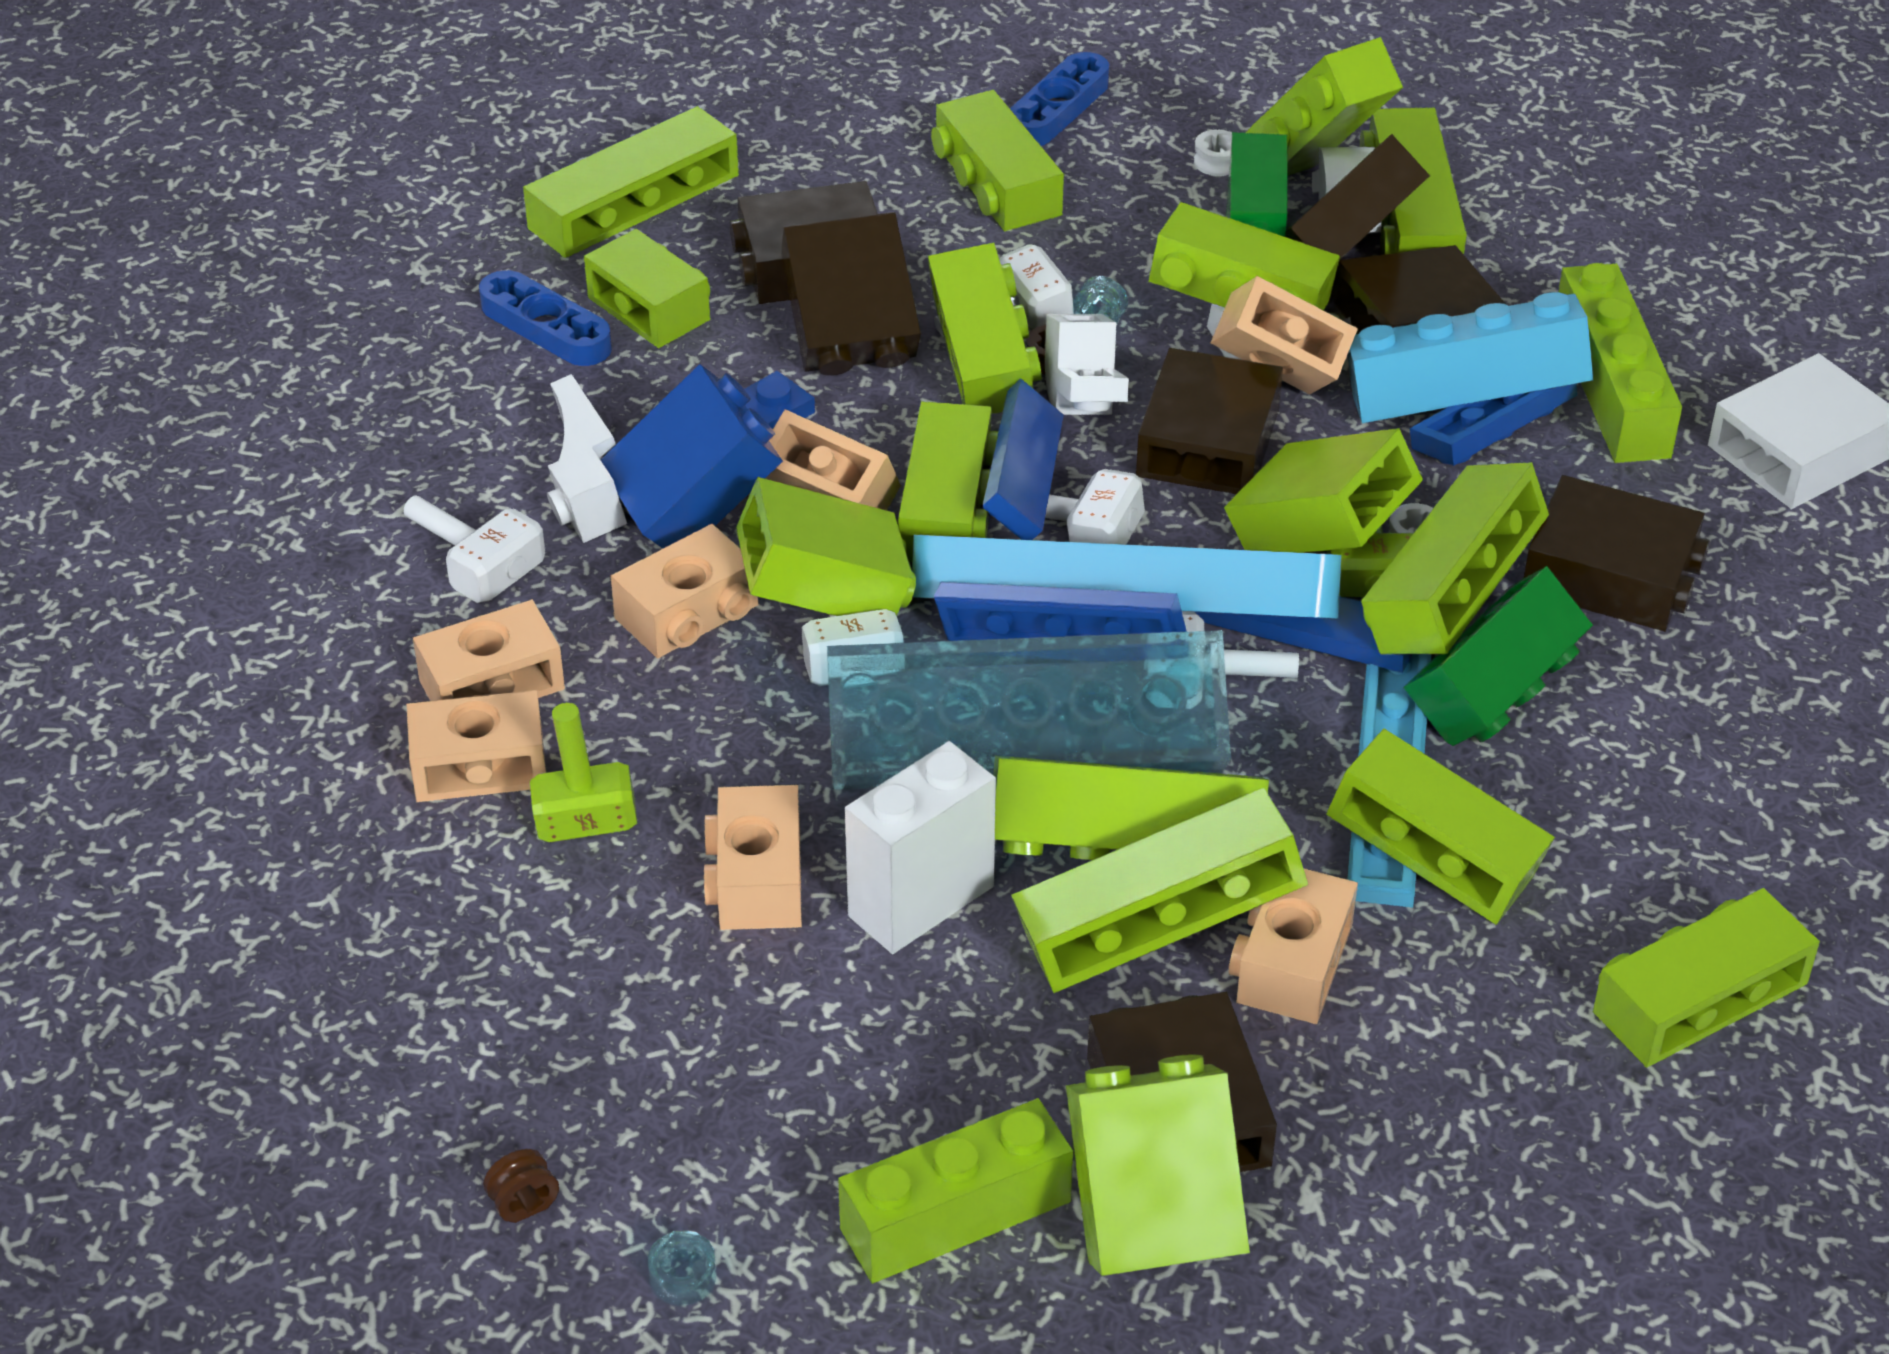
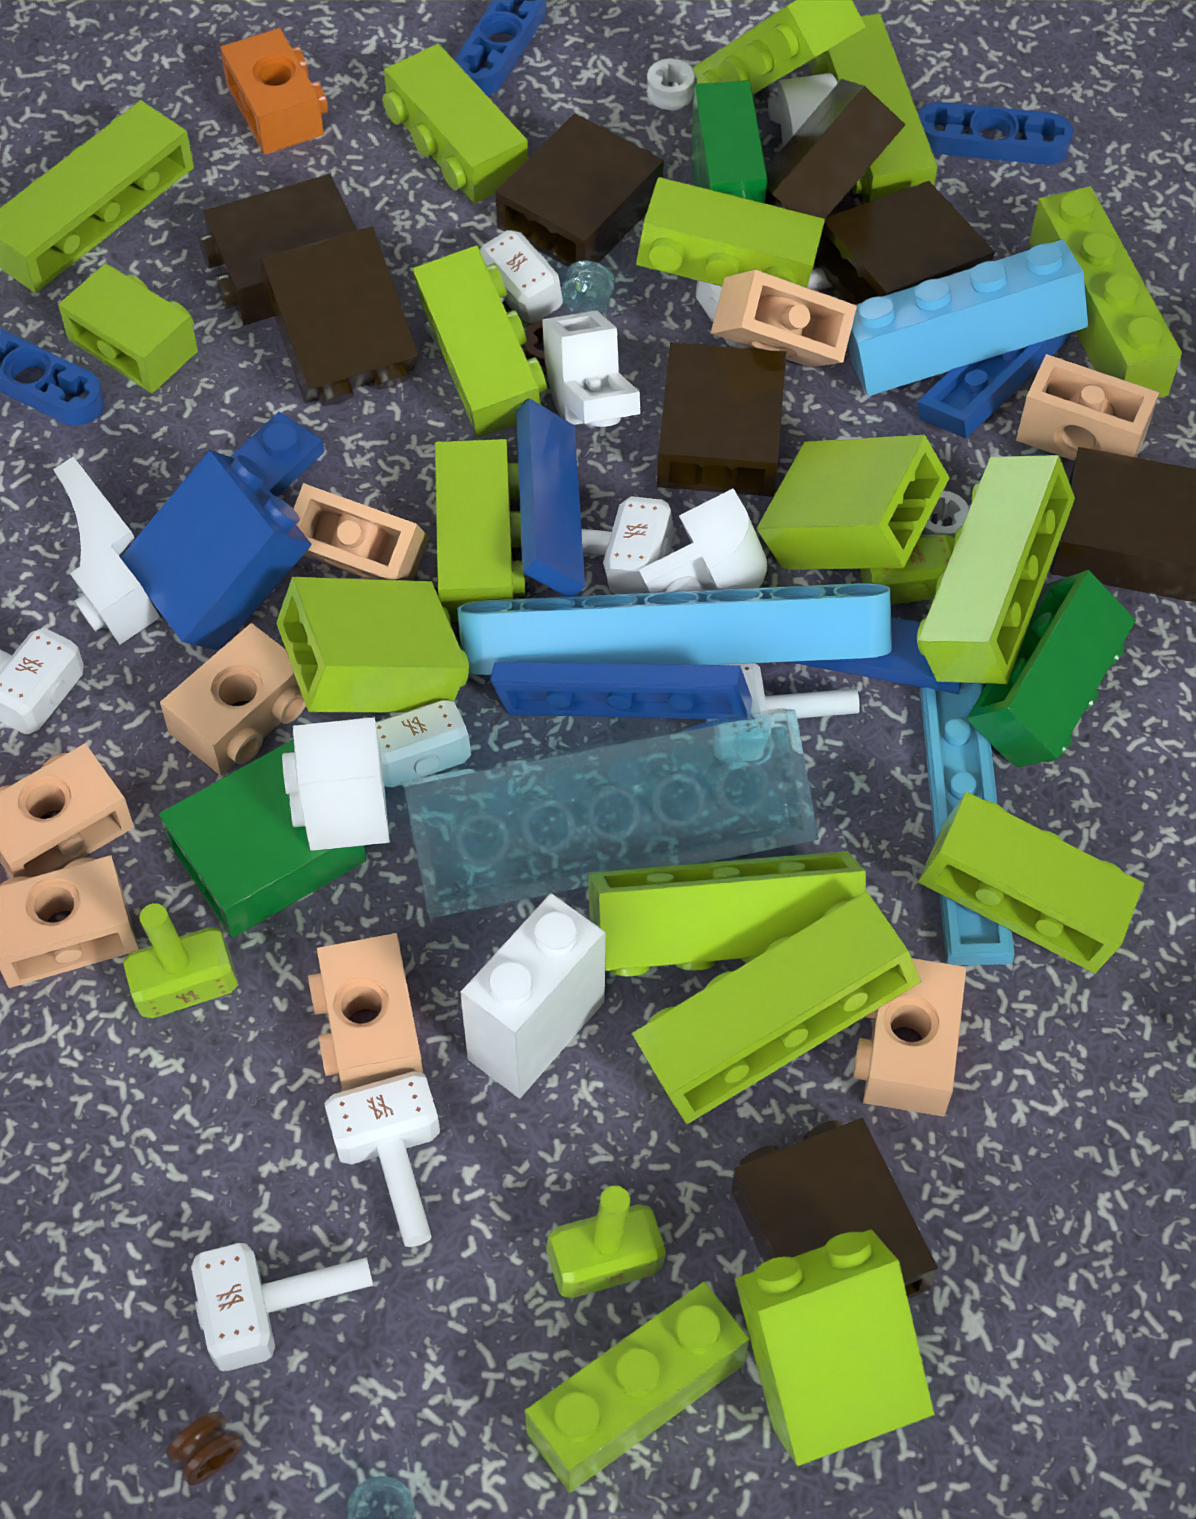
camera: 10 degrees left, 15 degrees up
(577, 1074) = (236, 1303): none -> white piece
(689, 703) = (244, 847): none -> green brick
(754, 949) = (382, 1123): none -> white piece
(765, 640) = (337, 784): none -> white brick
(828, 117) = (274, 90): none -> orange brick
(950, 1075) = (606, 1248): none -> lime piece
(1102, 223) = (579, 192): none -> dark brown brick
(1183, 516) = (721, 551): none -> white brick
(1577, 443) = (1084, 409): none -> light nougat brick
(1584, 230) = (1009, 121): none -> blue beam

